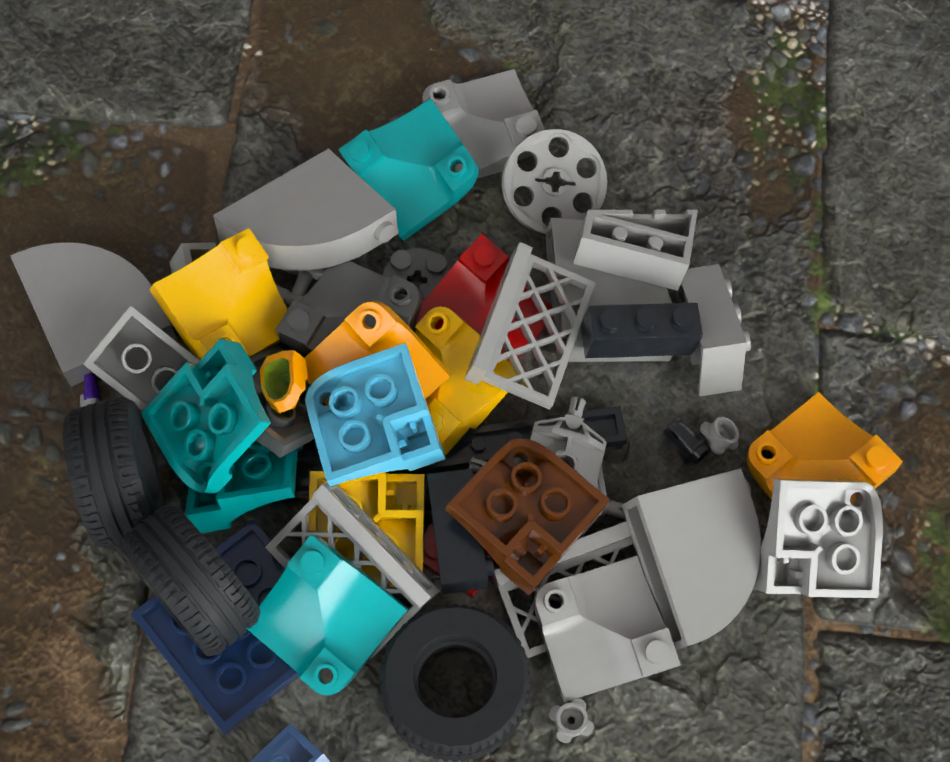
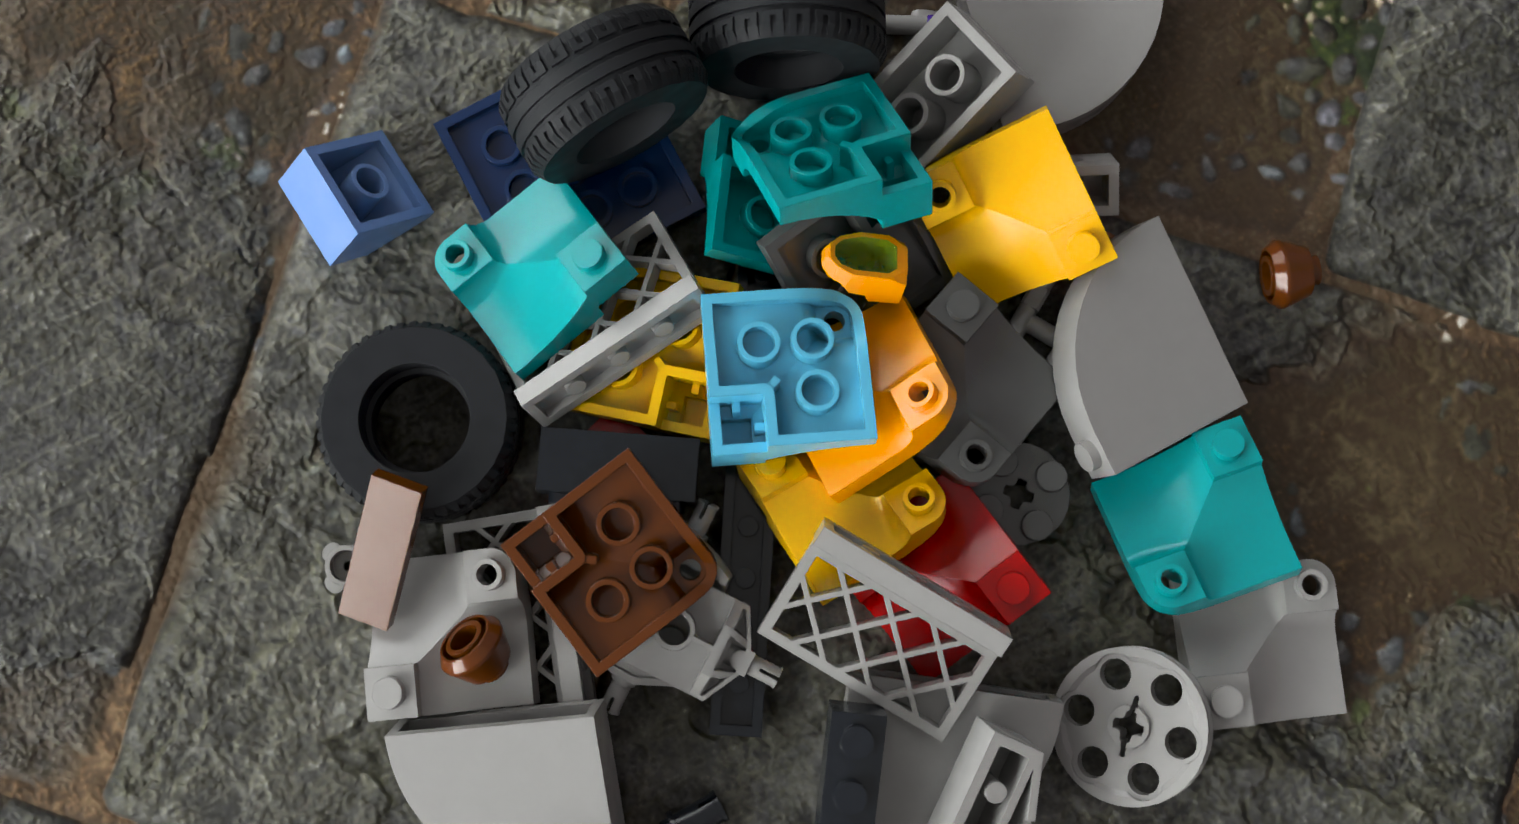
camera: 100 degrees right, 15 degrees up
(235, 144) = (1288, 273): none -> reddish brown cone
(555, 677) = (382, 549): none -> tile
(610, 596) = (476, 650): none -> reddish brown cone

